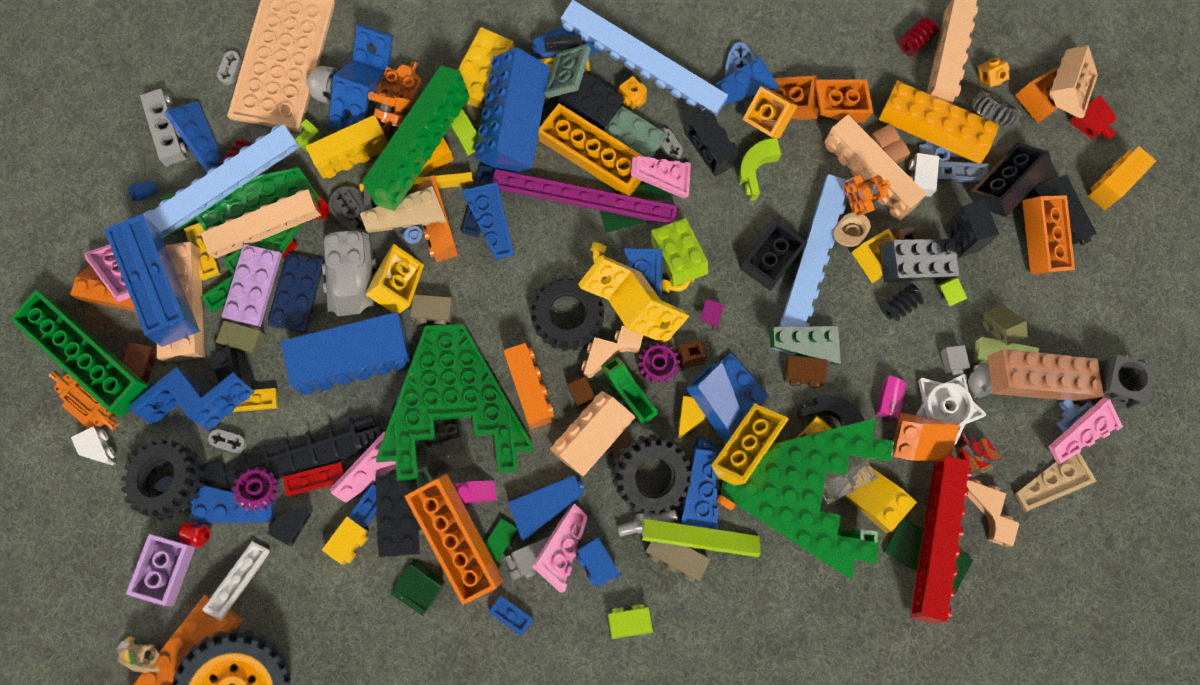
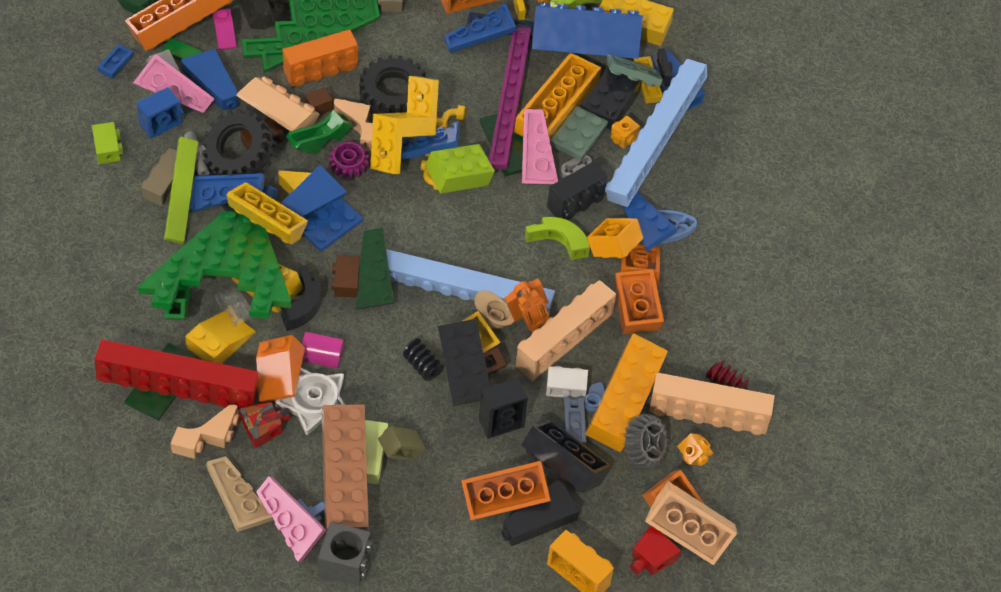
camera: 85 degrees right, 20 degrees down
(691, 354) = (358, 184): reddish brown brick -> none
(711, 313) = (400, 199): magenta panel -> none
(725, 502) = (214, 211): orange tile -> none
(773, 255) = (463, 245): black brick -> none
(891, 143) = (596, 351): nougat brick -> none
(952, 291) = (438, 404): lime panel -> none
(955, 360) = (367, 399): light grey brick -> none

